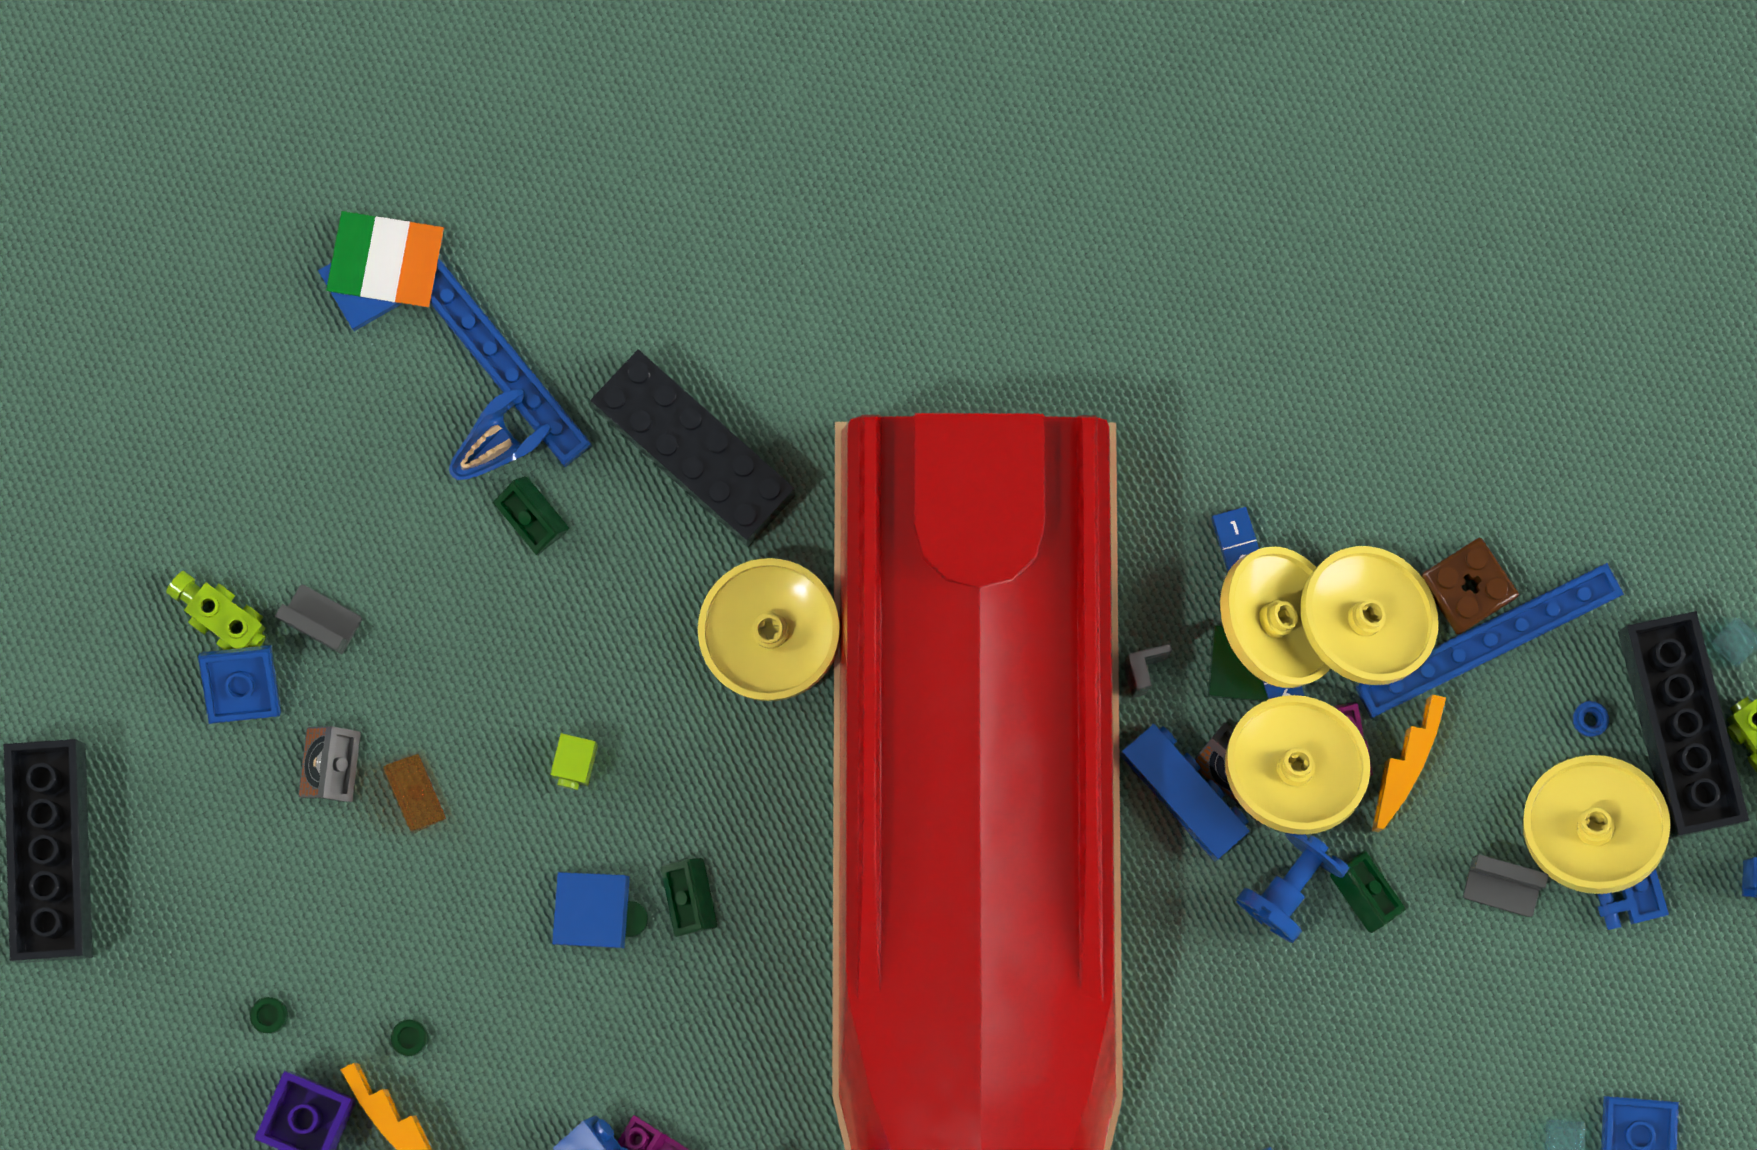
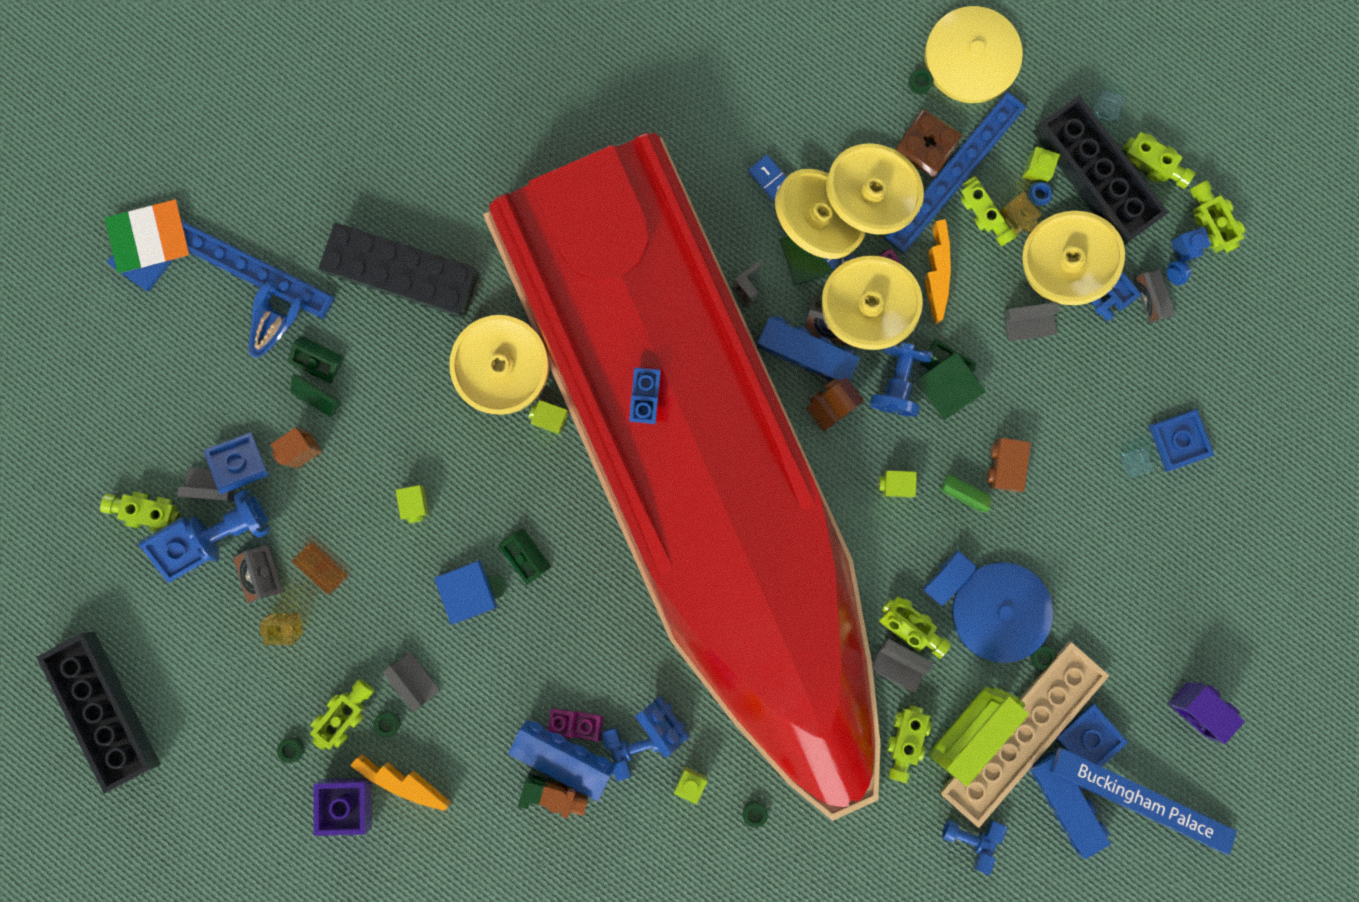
camera: 25 degrees left, 5 degrees up
(317, 854) = (281, 629): none -> clear yellow brick
(337, 684) = (246, 516): none -> blue piece
(350, 1000) = (339, 718): none -> lime brick
(368, 605) = (235, 463): none -> blue tile
(455, 621) = (295, 448): none -> dark orange brick
(468, 996) = (411, 681): none -> dark grey panel
(507, 562) = (313, 395): none -> dark green slope
(802, 726) = (548, 417): none -> lime brick
(942, 755) = (644, 395): none -> blue slope
(1189, 877) = (835, 403): none -> reddish brown brick
(1228, 1022) = (898, 484): none -> lime brick
(1315, 1076) = (966, 493): none -> bright green slope
(1356, 922) = (950, 385): none -> dark green tile
(1388, 1064) = (1009, 465): none -> dark orange brick
(1496, 498) = (920, 81): none -> dark green tile
(1501, 705) = (982, 207): none -> lime brick
(1541, 727) = (1013, 216): none -> clear yellow brick
(1582, 493) = (973, 54): none -> light yellow dish
(1607, 681) = (1040, 165): none -> lime brick
(1687, 925) = (1154, 296): none -> dark grey panel
(1733, 907) = (1178, 272): none -> blue plate

